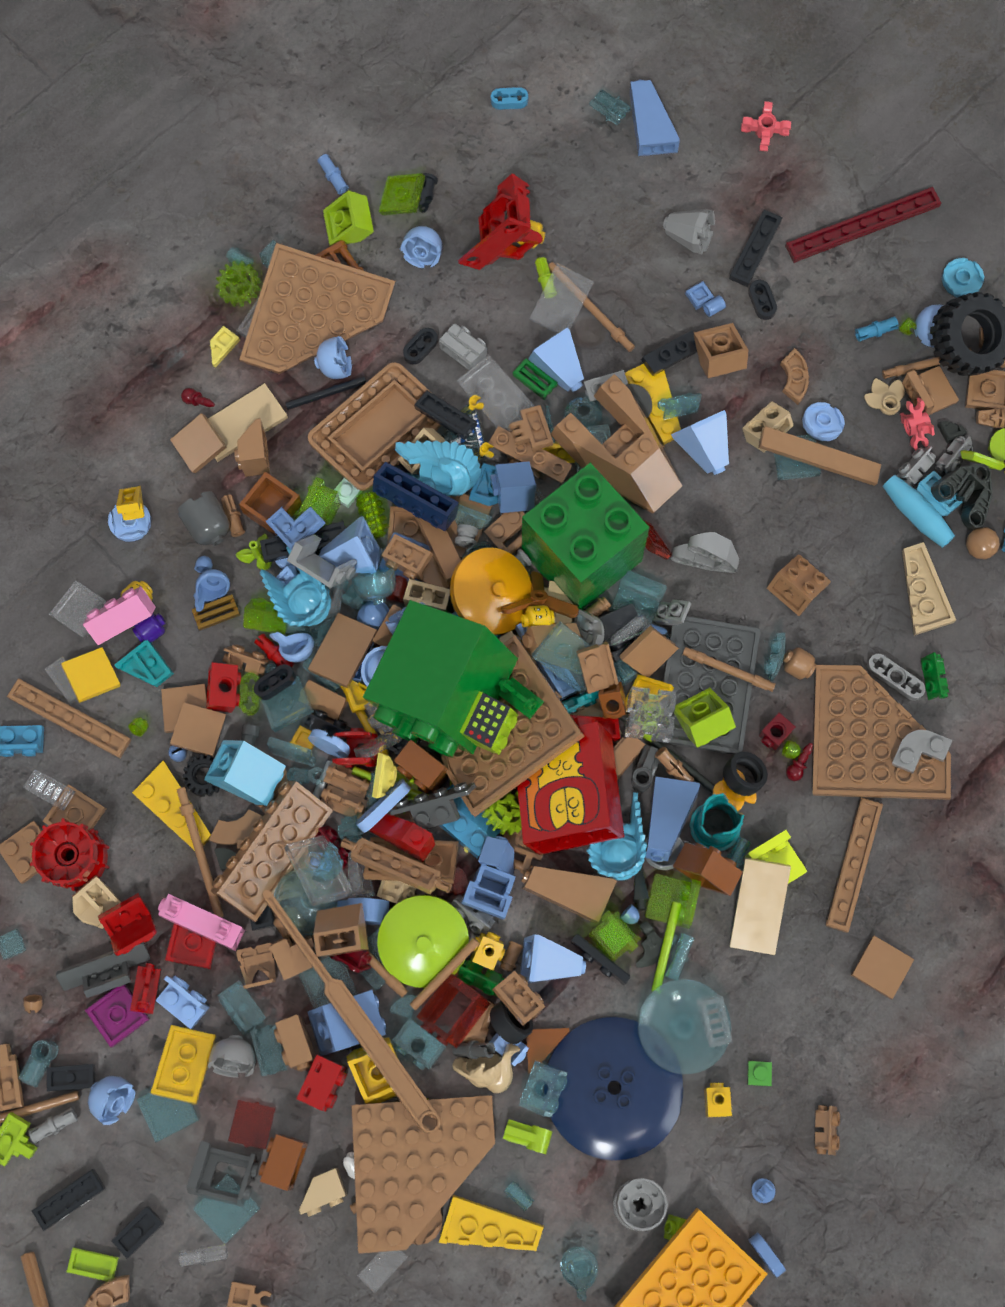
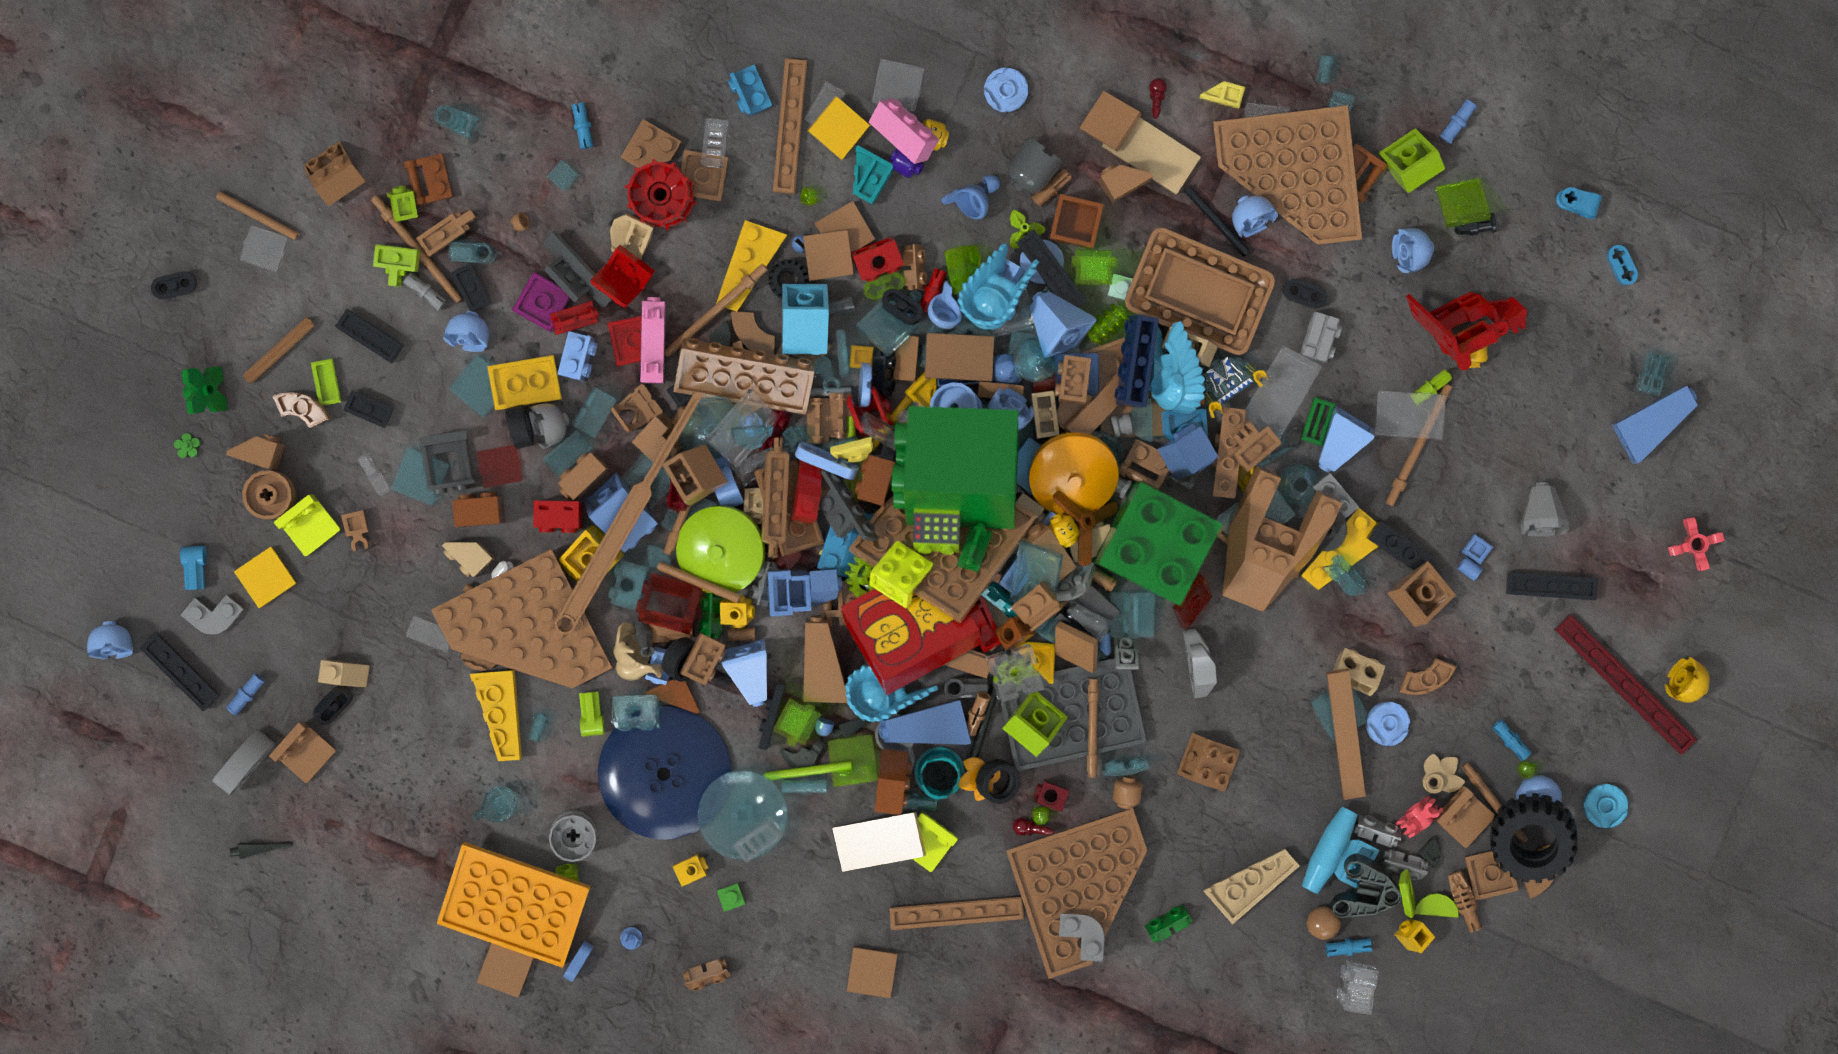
camera: 65 degrees right, 15 degrees up
(130, 503) = (1021, 84): yellow slope -> none
(220, 619) = (962, 230): pearl gold tile -> none
(221, 1085) = (519, 426): none -> black tyre
(242, 291) = (1284, 83): clear neon green gear -> none
(293, 531) = (1052, 262): medium blue tile -> none
(304, 558) = (1024, 303): light grey panel -> none
(442, 109) = (1583, 202): none -> dark azure piece
(445, 415) = (1235, 353): black plate -> none
(515, 775) = (899, 573): none -> neon yellow bracket
(706, 442) = (1316, 617): light blue slope -> none
(762, 301) = (1496, 615): black plate -> none
(879, 172) = (1688, 681): none -> yellow cylinder
(906, 691) = (1144, 902): light grey beam -> none

